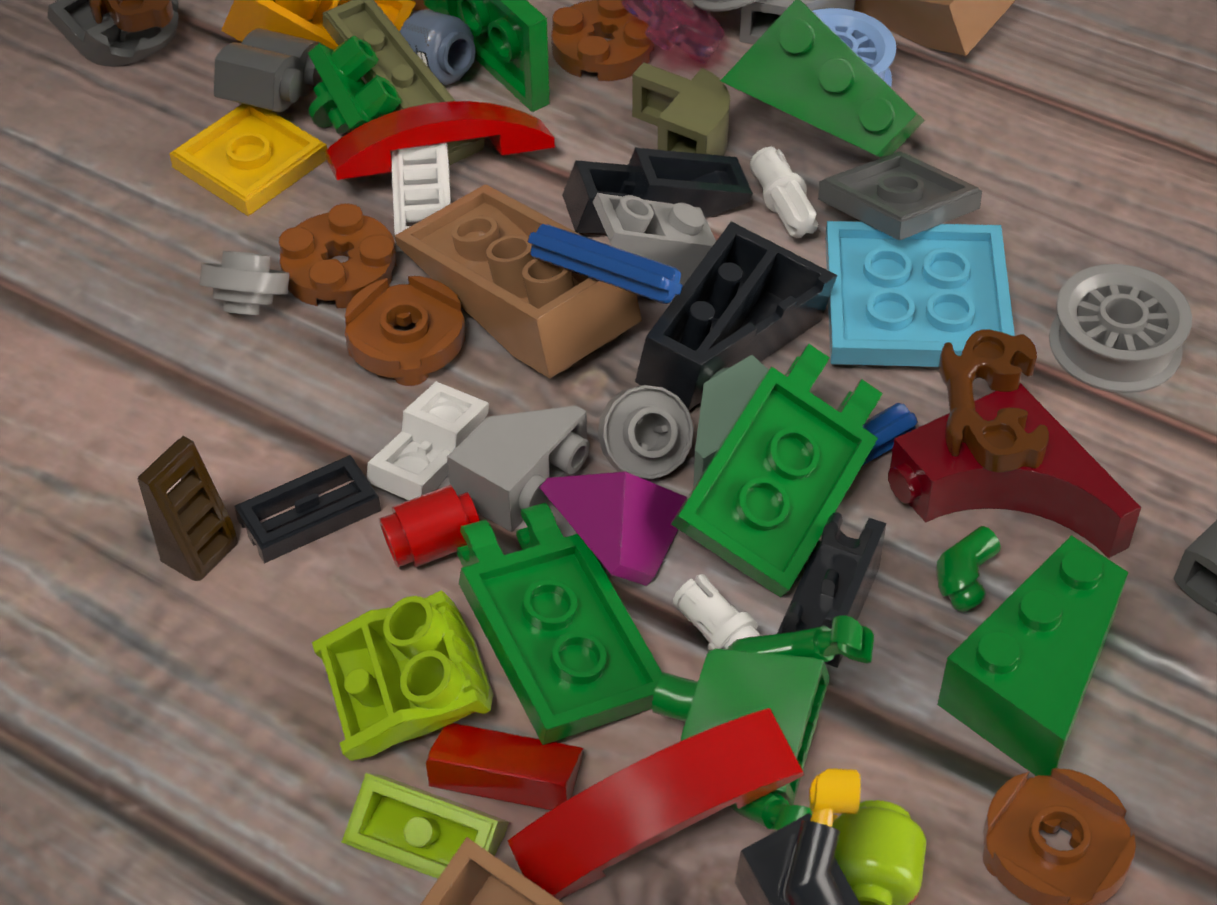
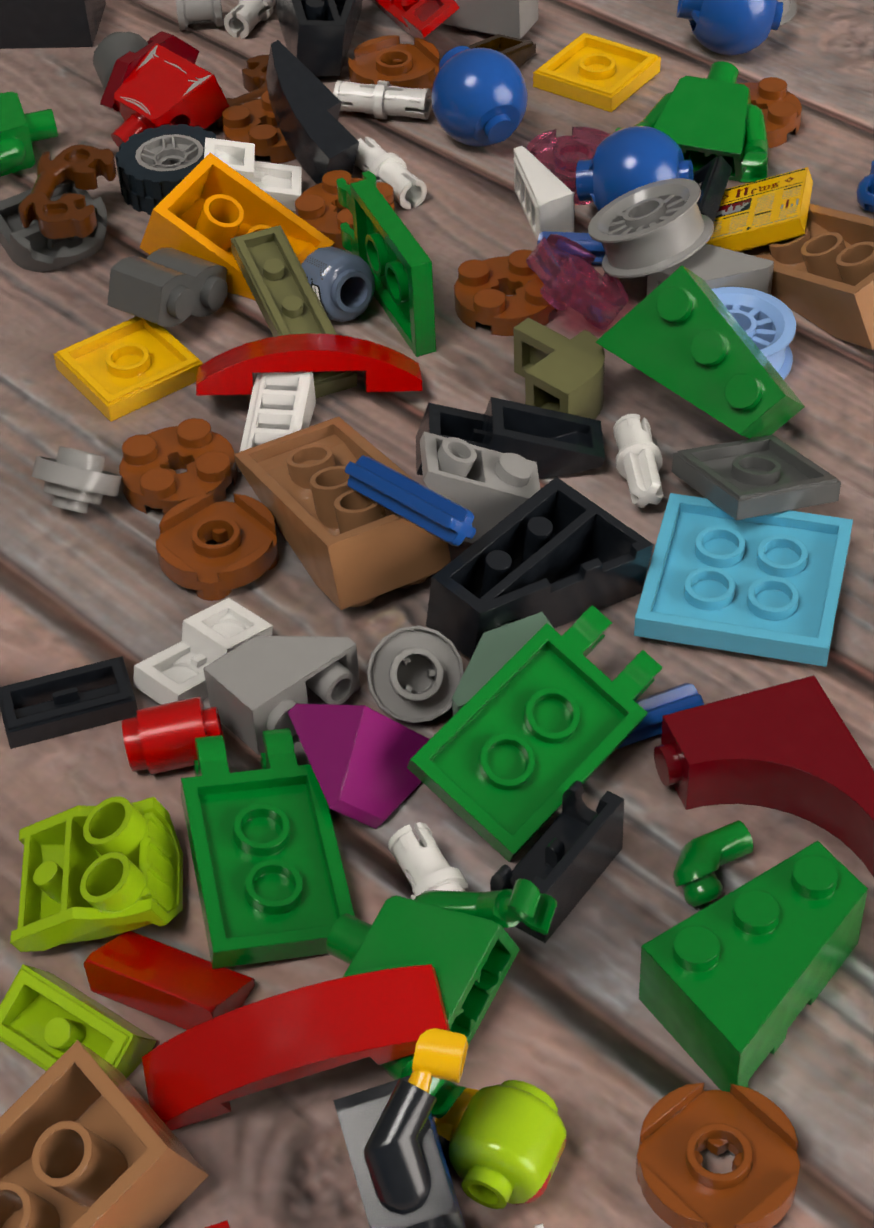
camera: 15 degrees right, 5 degrees down
(343, 96) = (232, 314): green hips -> none
(1000, 361) = (778, 733): reddish brown helmet -> none

